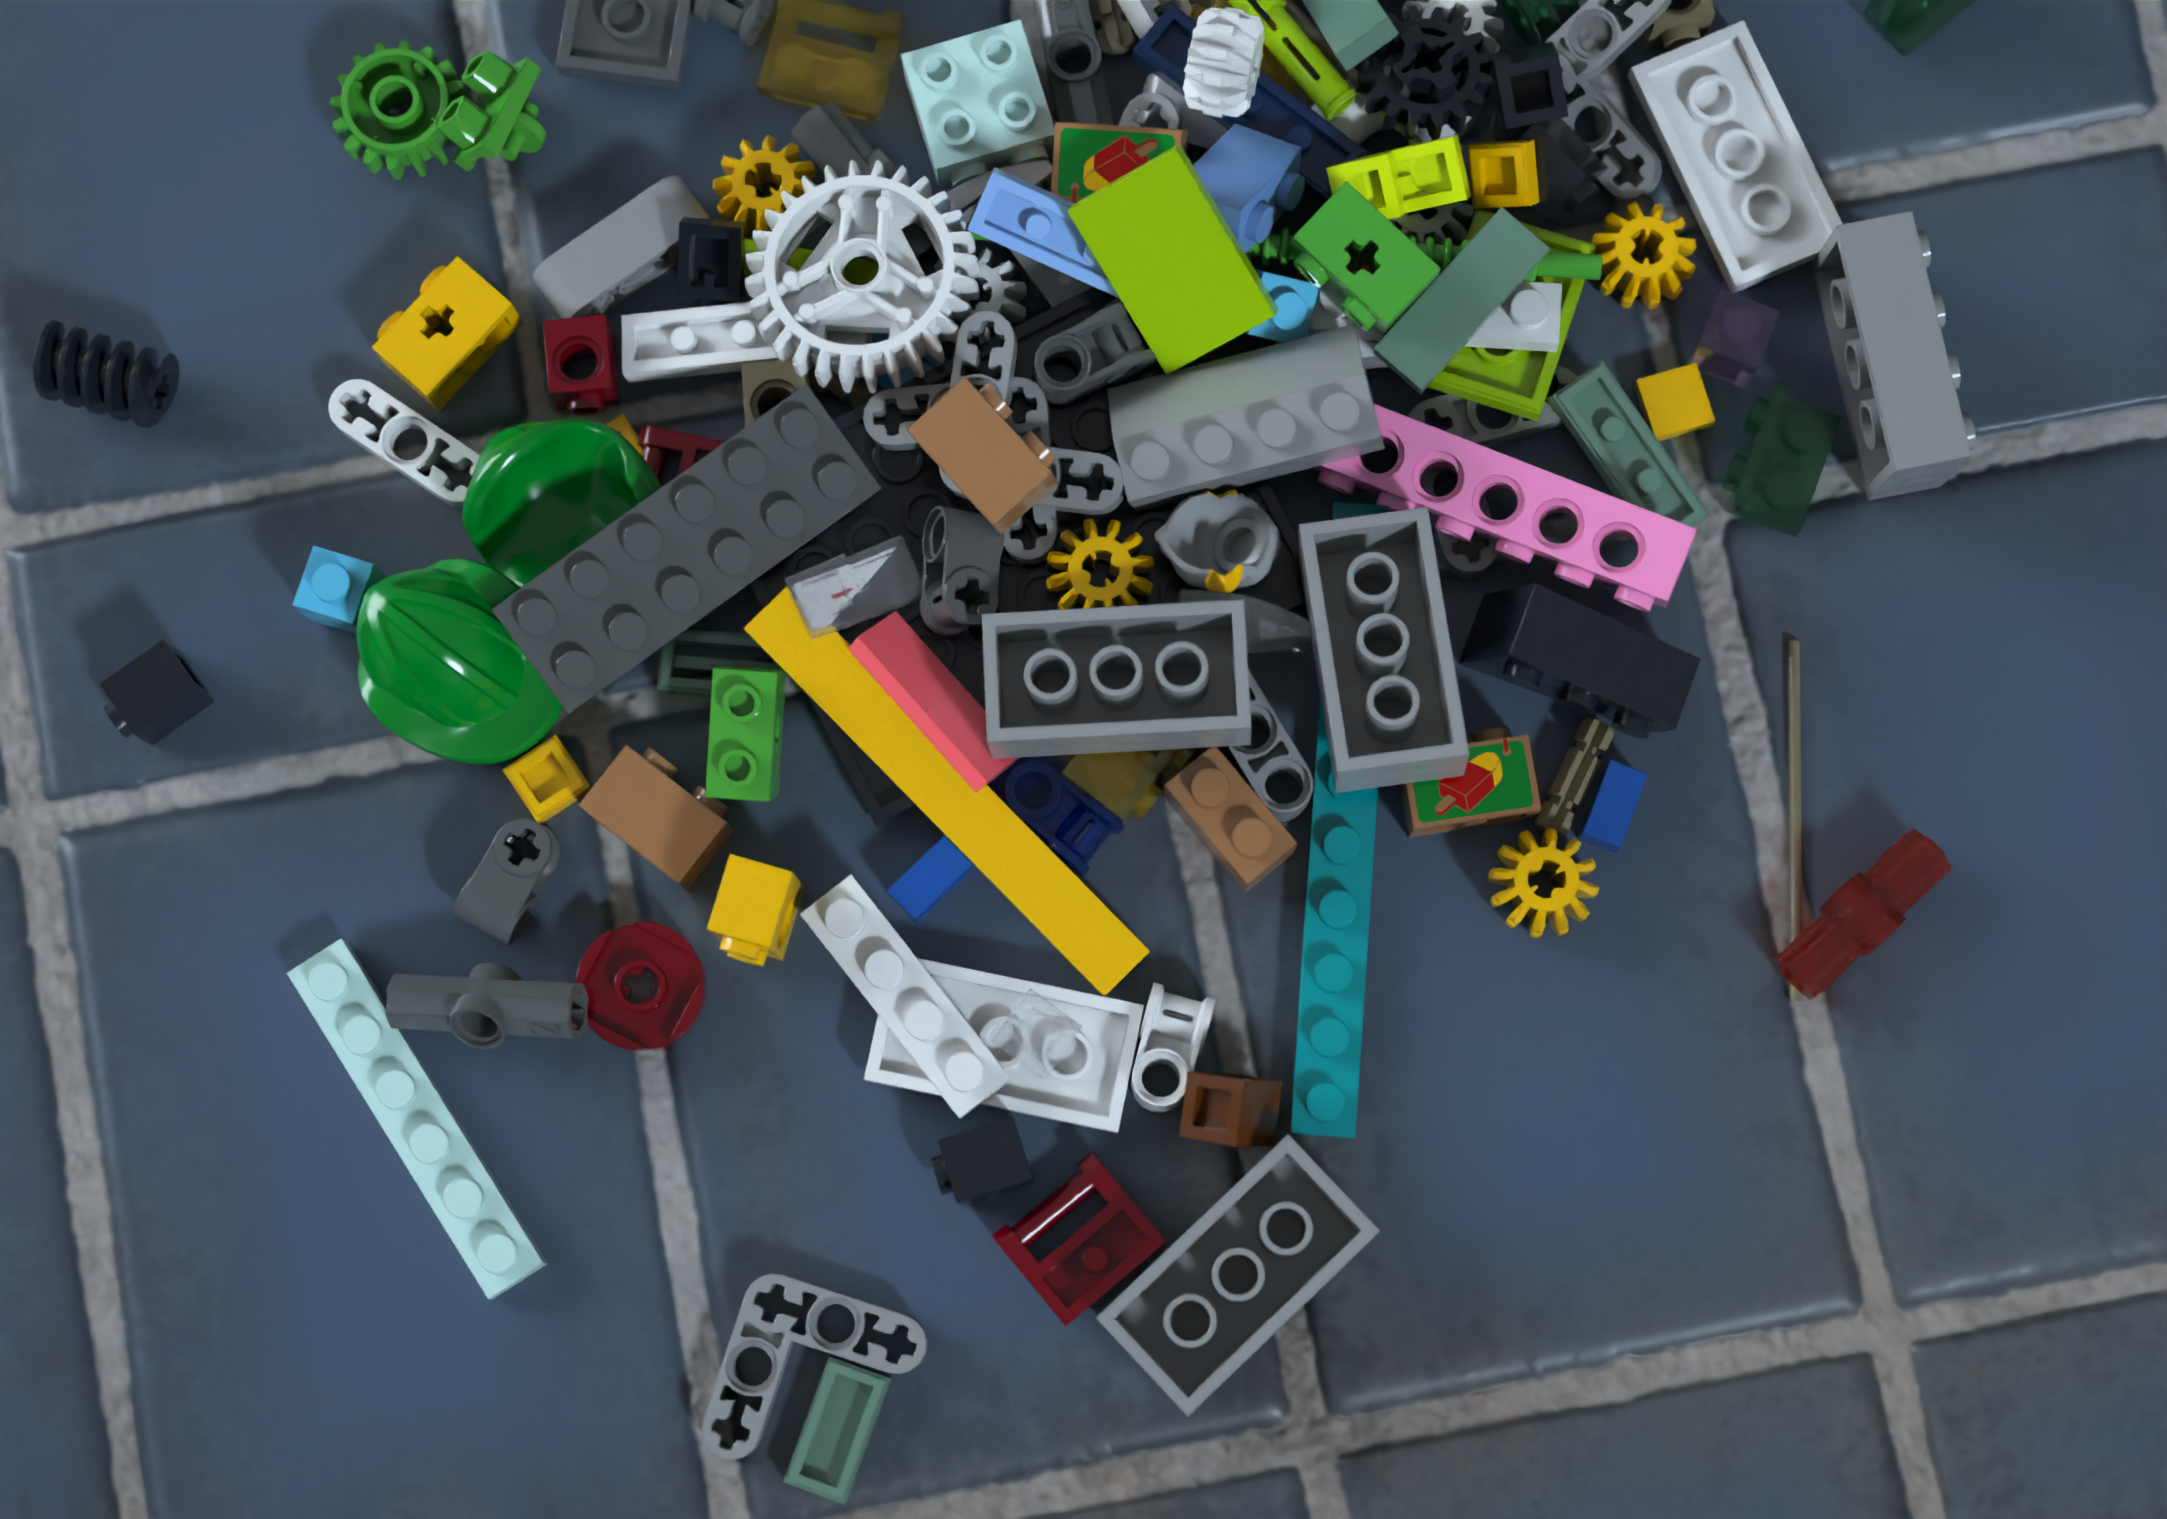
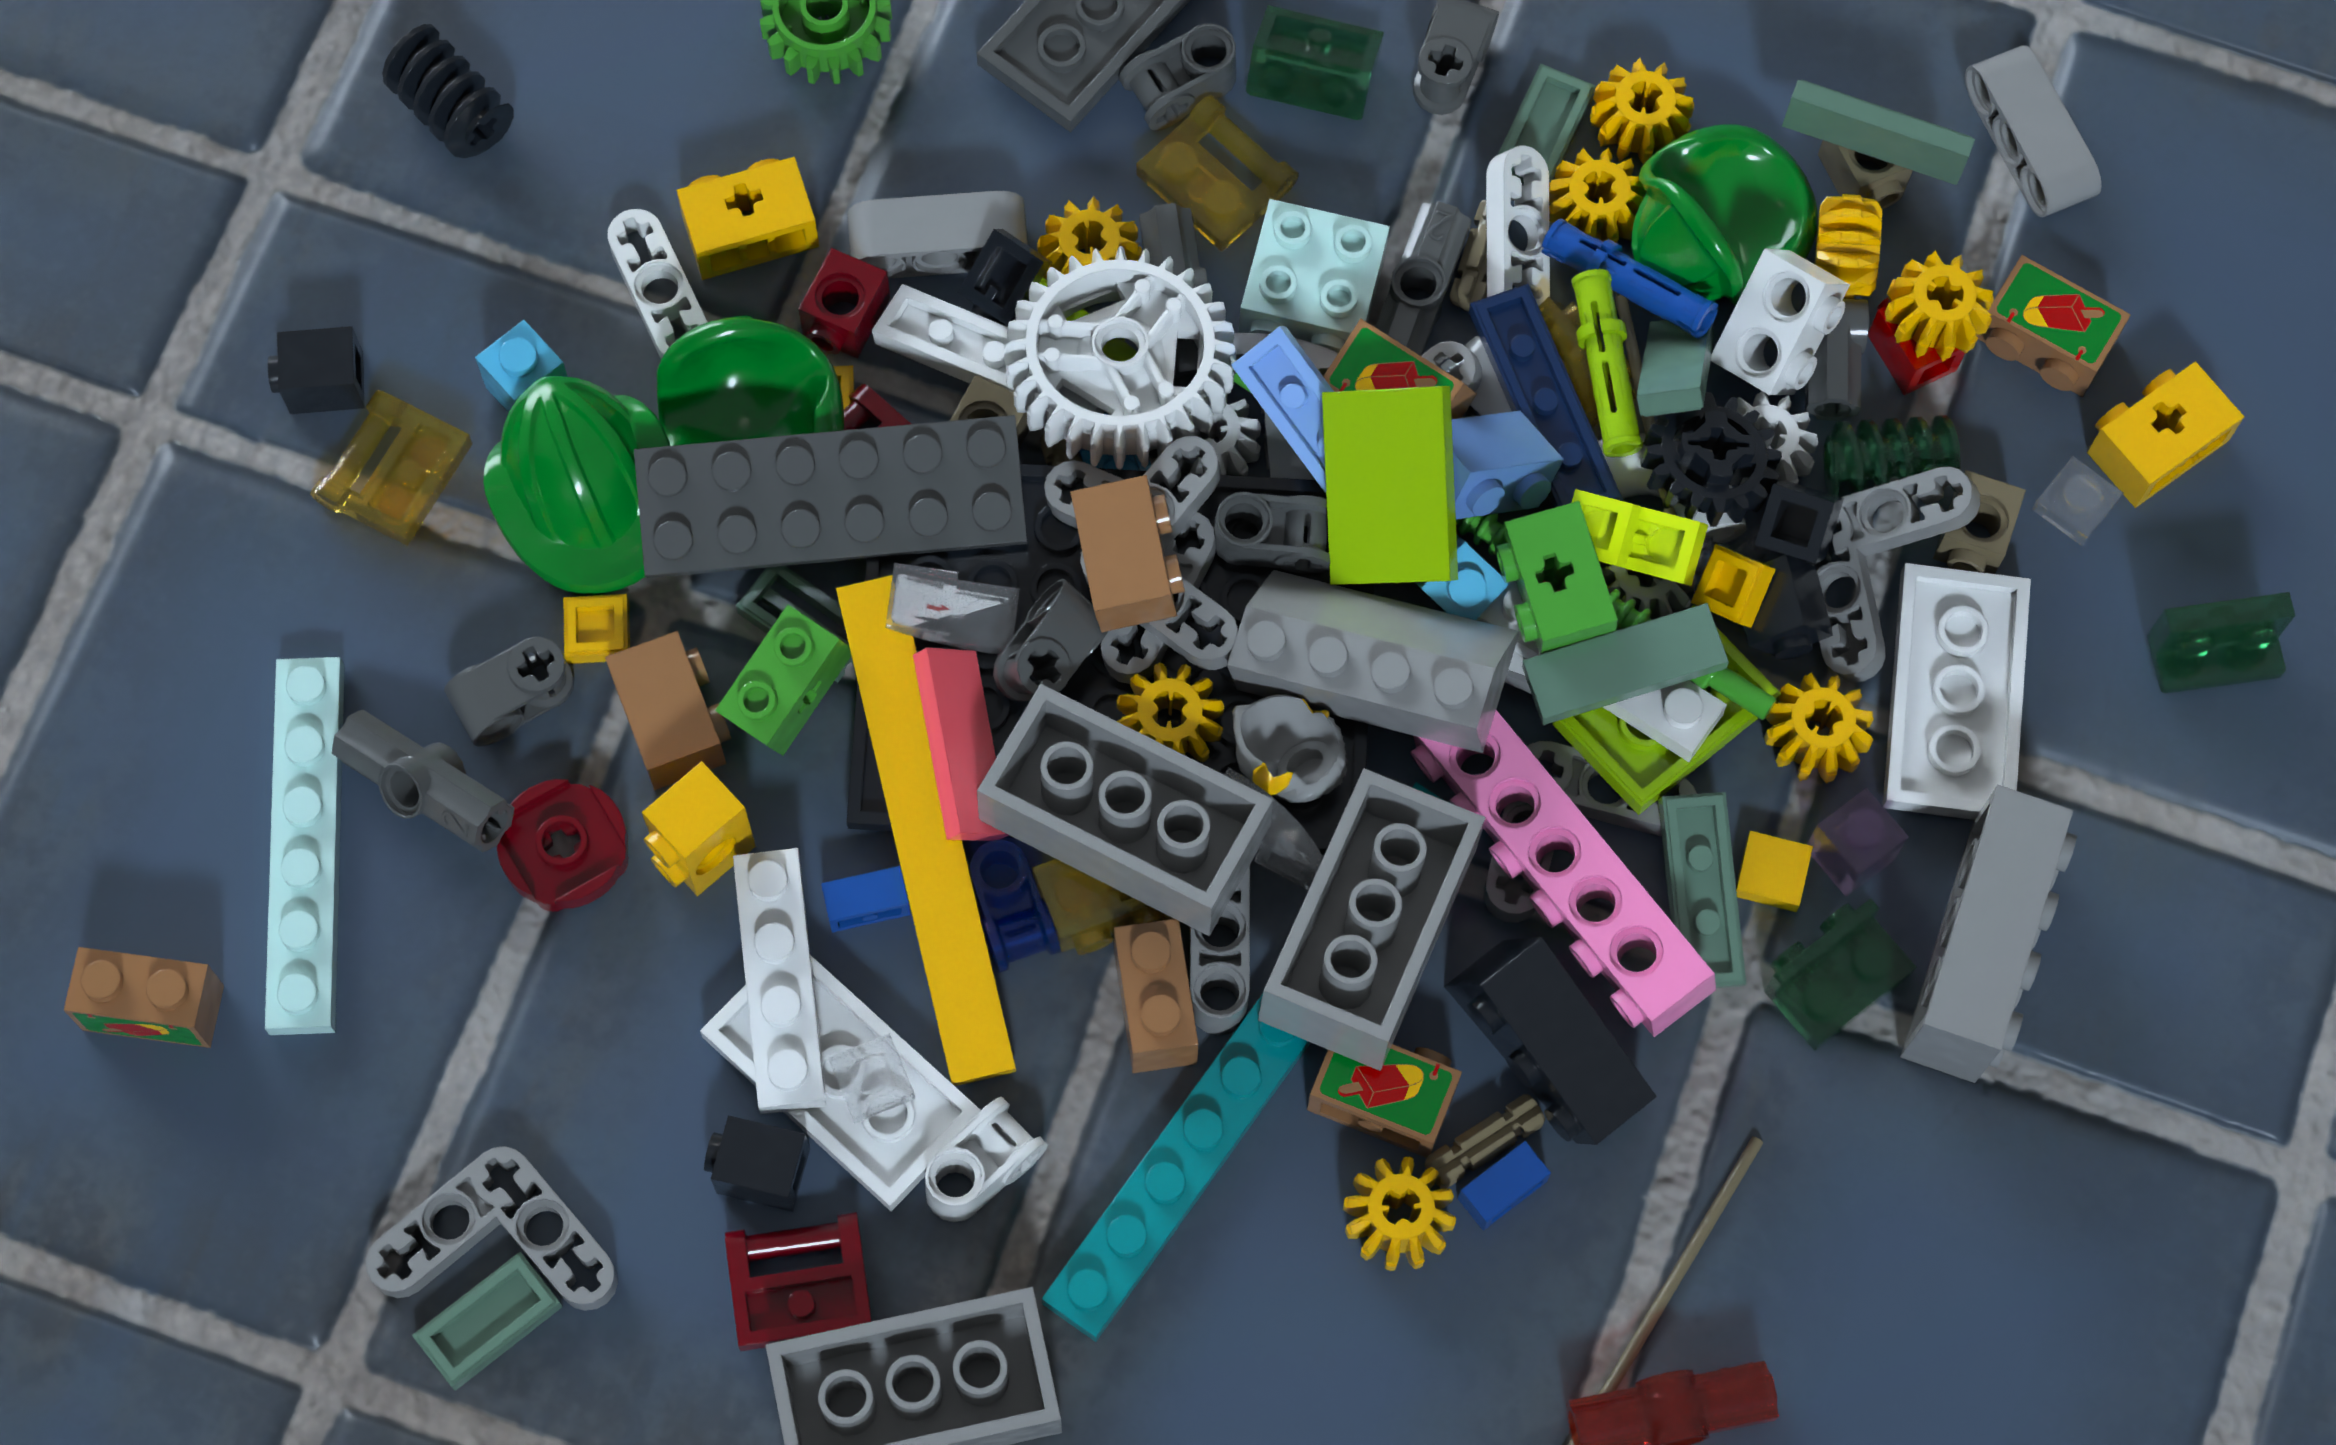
camera: 25 degrees right, 10 degrees down
(296, 741) = (407, 476): none -> clear yellow plate
(367, 1336) = (144, 997): none -> medium nougat brick
(504, 118) = (880, 70): bright green hips -> none
(1224, 62) = (1536, 349): white gear -> none
(1230, 1109) = (999, 1240): reddish brown brick -> none

